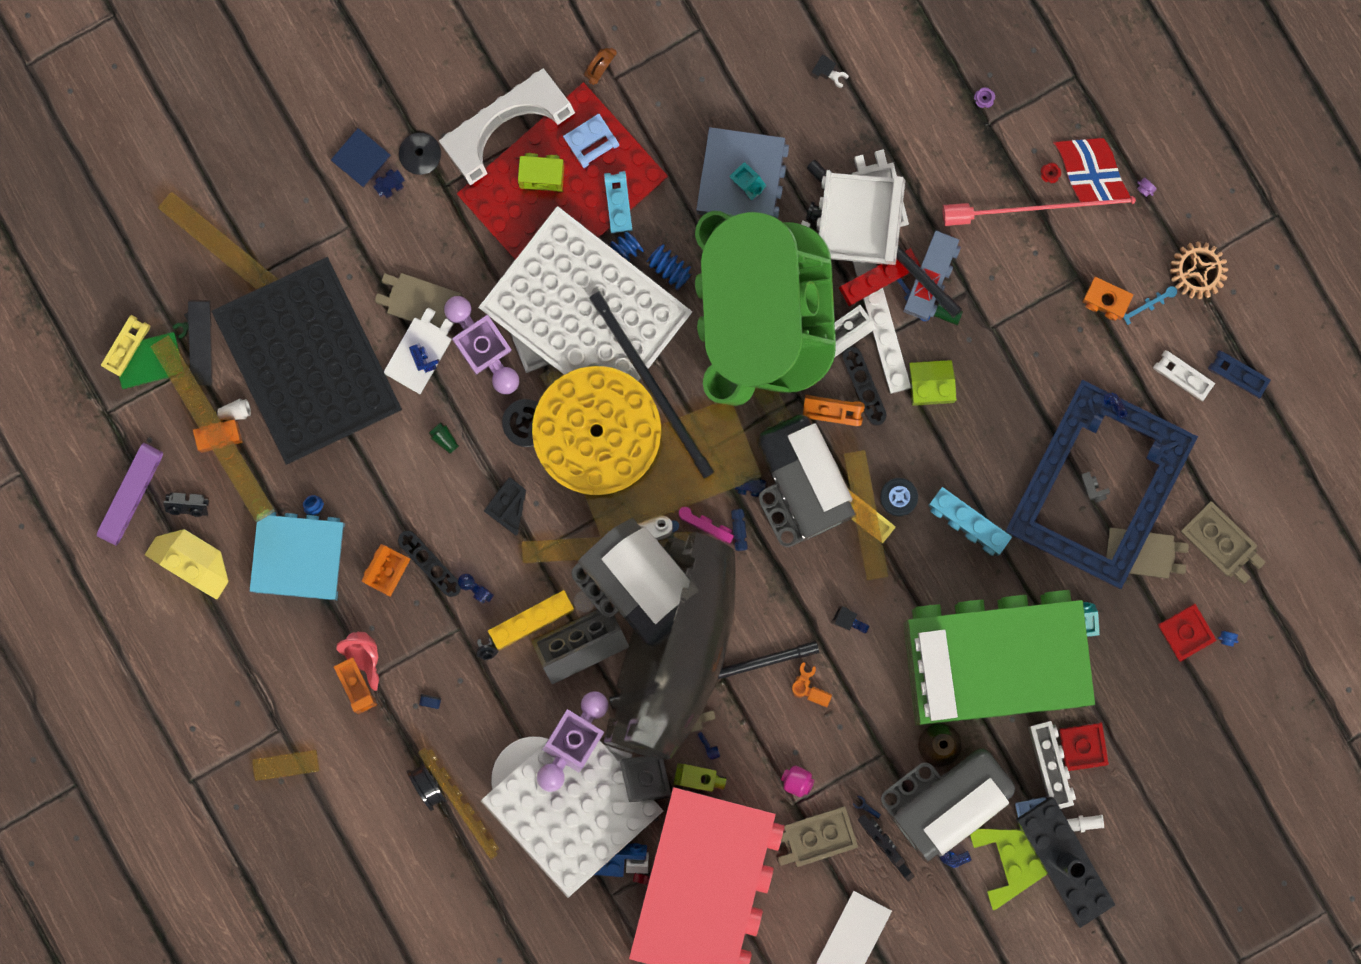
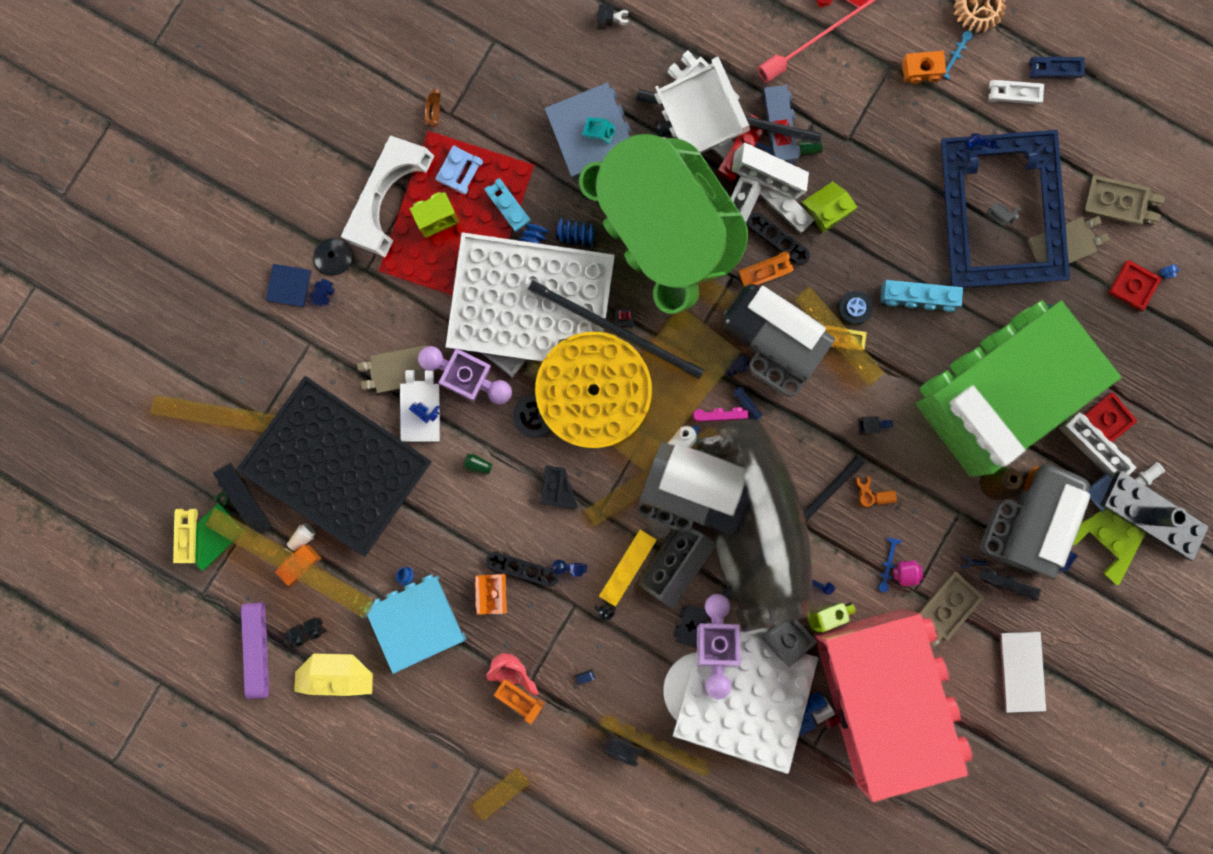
camera: 25 degrees left, 0 degrees up
(562, 697) = (687, 614): none -> black brick
(668, 378) = (624, 318): none -> black piece
(768, 781) = (883, 586): none -> blue piece
(891, 316) = (770, 171): none -> white brick

